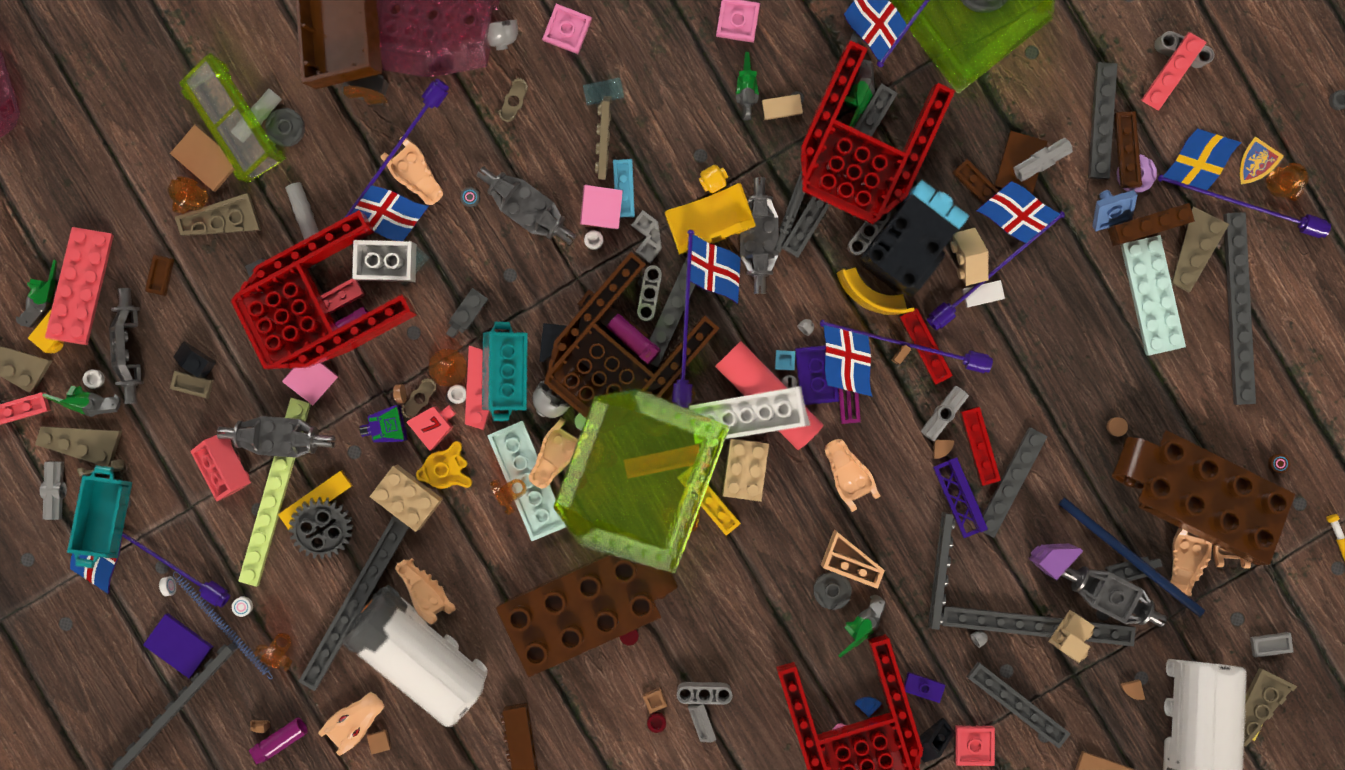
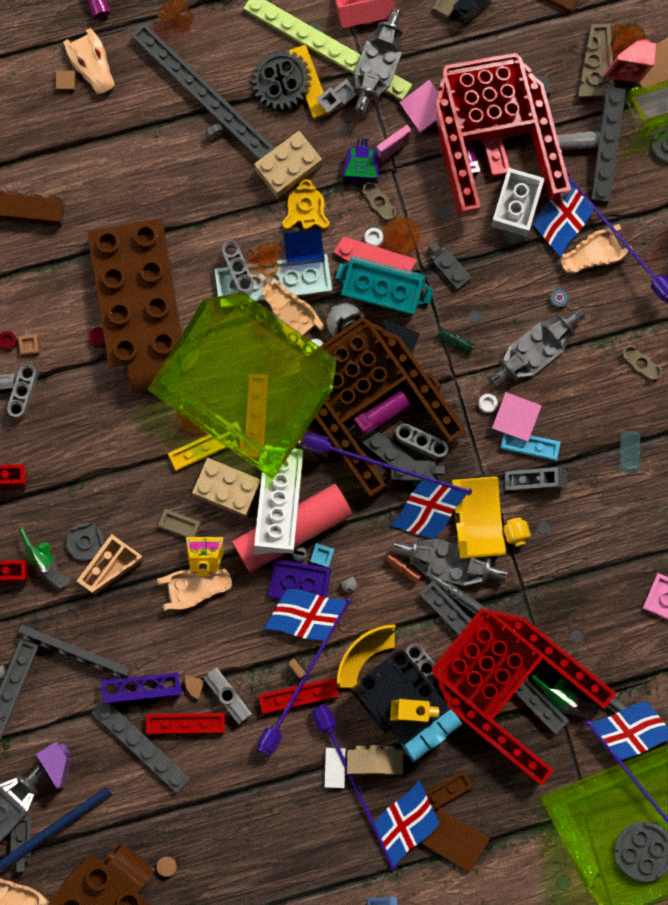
camera: 110 degrees right, 10 degrees down
(209, 178) = (633, 62): none -> coral slope
(300, 186) = (608, 144): none -> dark grey plate
(324, 467) = (337, 98): none -> light grey slope
(357, 399) = (393, 143): none -> bright pink tile
(392, 579) = (214, 132): none -> dark grey tile
(399, 393) = (388, 184): medium nougat tile -> none
(415, 656) = (137, 132): white piece -> none
(425, 593) = (193, 157): light nougat animal -> none
(432, 425) = (350, 206): coral torso -> none
(486, 459) = (304, 247): none -> clear blue tile
(517, 521) = (237, 259): none -> light grey beam
(540, 286) = (455, 340): none -> clear green pin
(601, 167) = (585, 438): dark tan wing -> none
(650, 229) = (484, 460): light grey tile -> none
(657, 173) = (536, 479): none -> dark grey slope
(677, 286) = (423, 468): none -> dark grey hinge
(747, 88) = (597, 588): animal -> none
(777, 279) = (402, 569): none -> copper pin
(782, 107) = (571, 618): tan tile -> none
(791, 505) = (178, 524): none -> dark tan tile
(817, 472) = (204, 554): none -> yellow torso
(849, 408) = (259, 598): magenta tile -> none
(929, 228) = (405, 711): none -> yellow torso
(1043, 159) = (452, 860): light grey piece -> none

